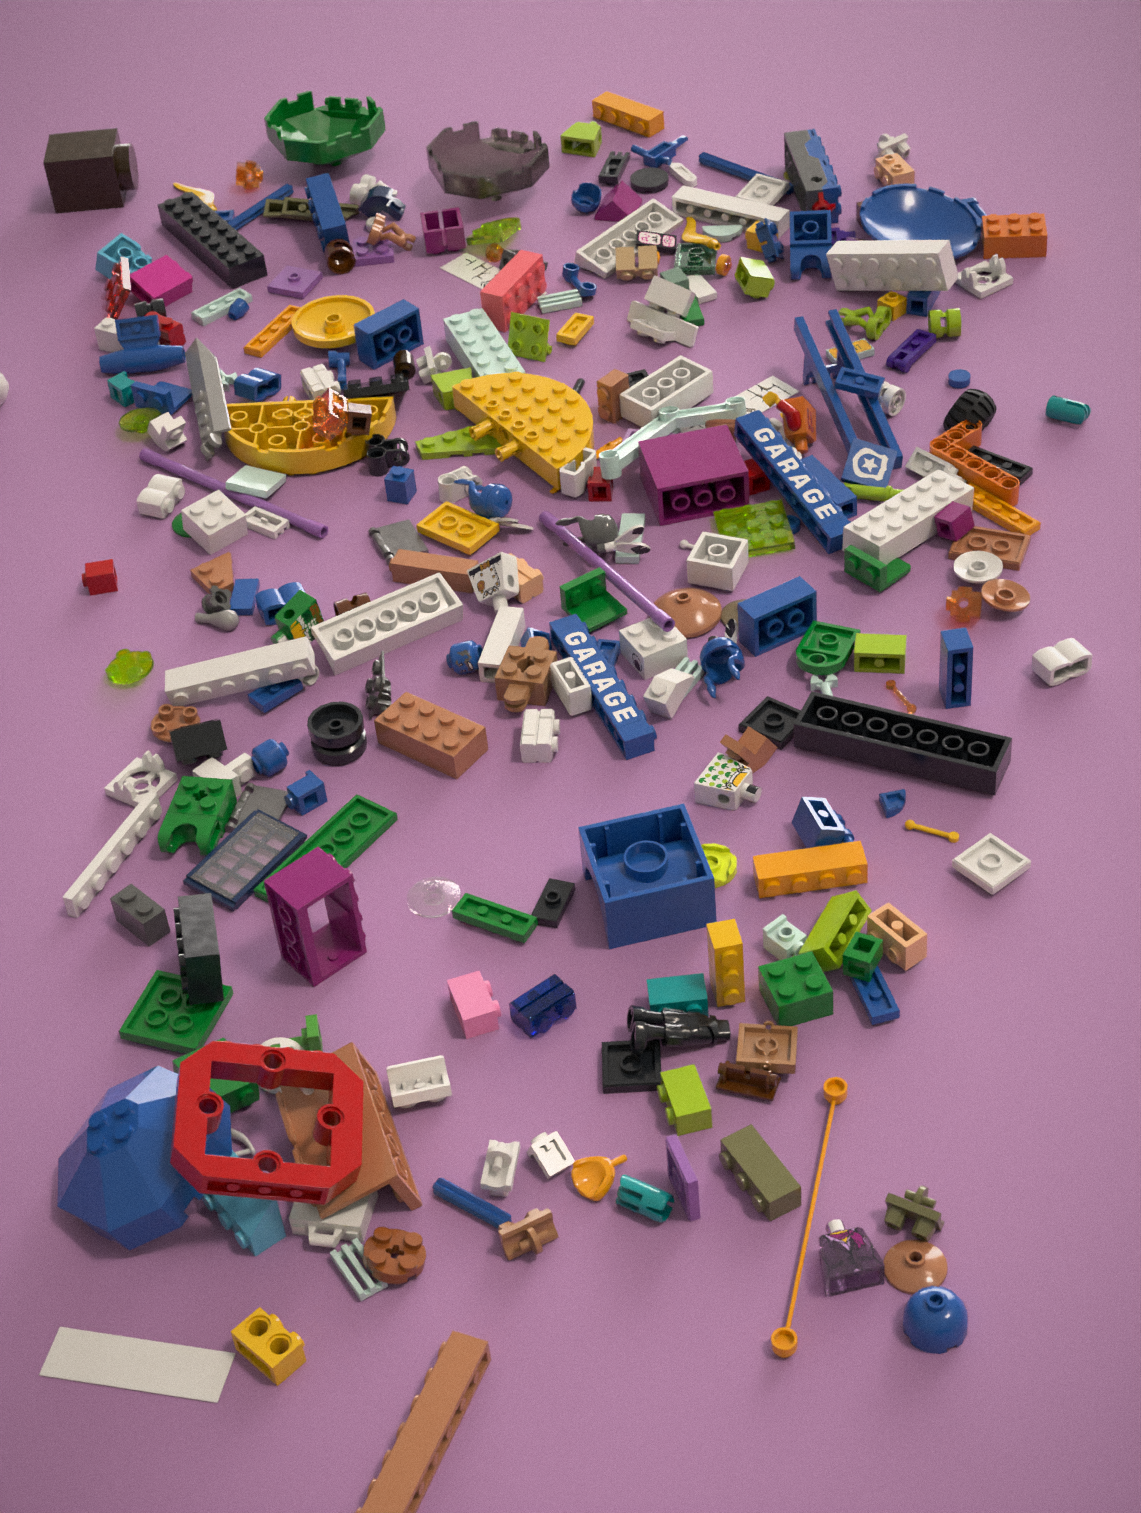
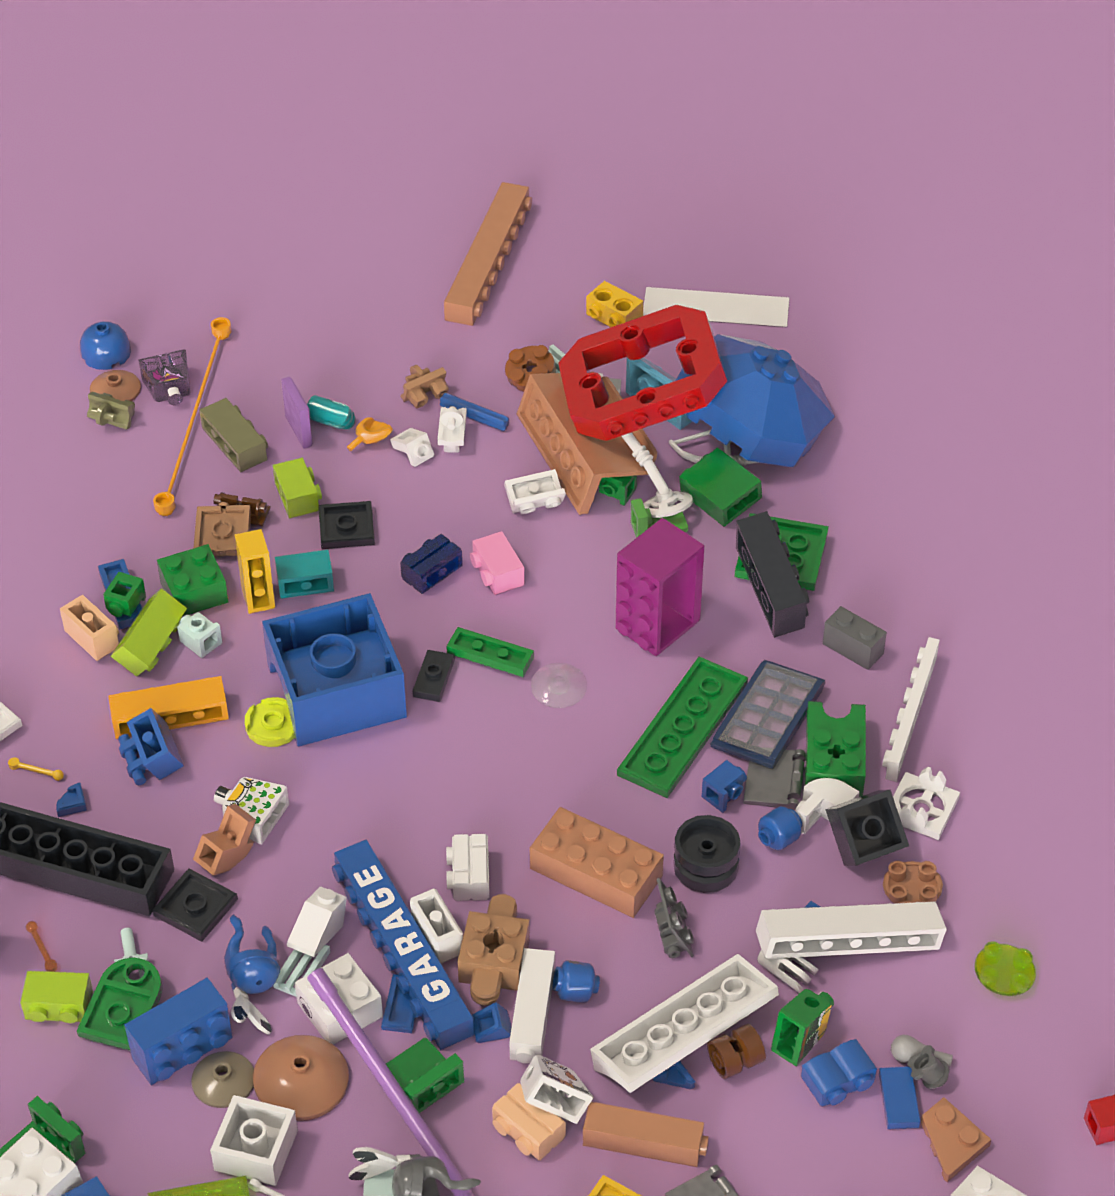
camera: 170 degrees right, 5 degrees up
(673, 1028) = (310, 536): black piece -> none

